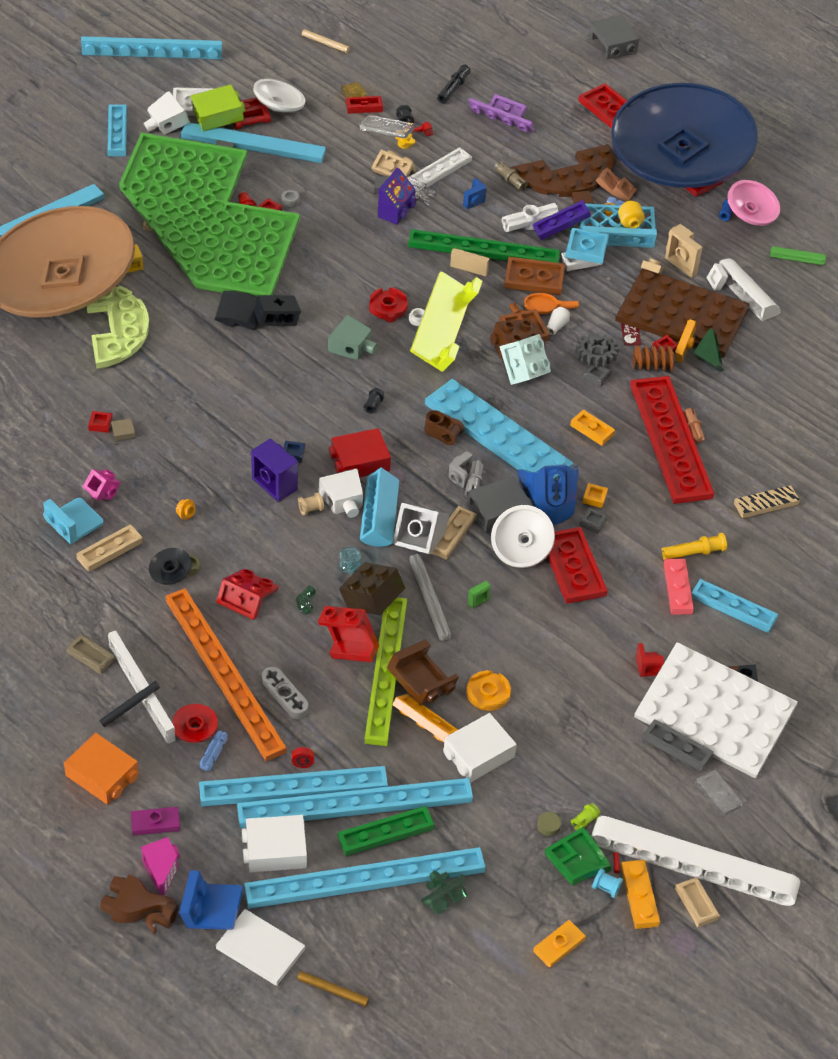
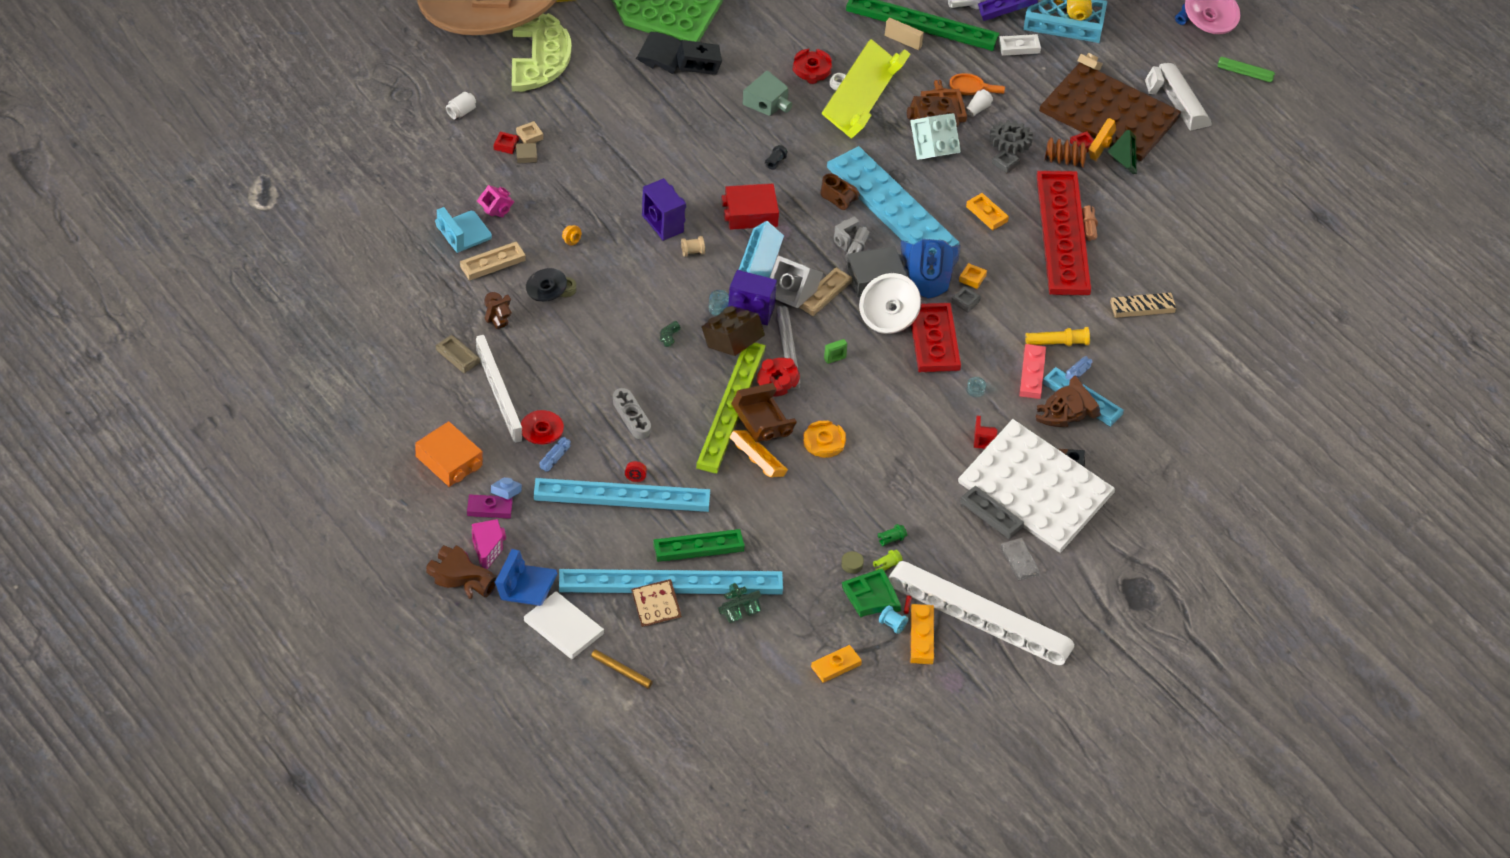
camera: 10 degrees right, 0 degrees up
(48, 389) = (461, 105): none -> white brick
(123, 408) = (529, 133): none -> tan plate
(124, 600) = (497, 309): none -> reddish brown hips
(130, 703) = (485, 401): black bar -> none
(169, 798) = (506, 488): none -> medium blue plate
(226, 675) = (579, 389): orange plate -> none
(245, 592) = (612, 317): red bracket -> none
(275, 843) = (594, 540): white brick -> none
(295, 449) = (689, 194): dark blue tile -> none
(342, 492) = (725, 239): white torso -> none
(350, 632) = (703, 367): red panel -> none
(355, 905) = (656, 602): none -> tan sticker
(360, 801) = (675, 517): medium azure plate -> none
(384, 546) = (753, 294): none -> dark purple brick
(428, 618) = (779, 366): none -> red plate
(479, 747) = (802, 486): white brick -> none
(534, 275) = (967, 55): dark orange plate -> none
(582, 787) = (892, 535): none -> green pin
(587, 245) = (1026, 32): medium azure plate -> none
(625, 606) = (976, 382): none -> clear light blue bush
(631, 335) = (1051, 127): dark red sticker -> none
(683, 250) = (1124, 49): tan plate -> none
(697, 902) = (973, 649): tan tile -> none
(723, 577) = (1079, 368): none -> medium blue axle
(727, 617) = (1068, 405): none -> reddish brown piece

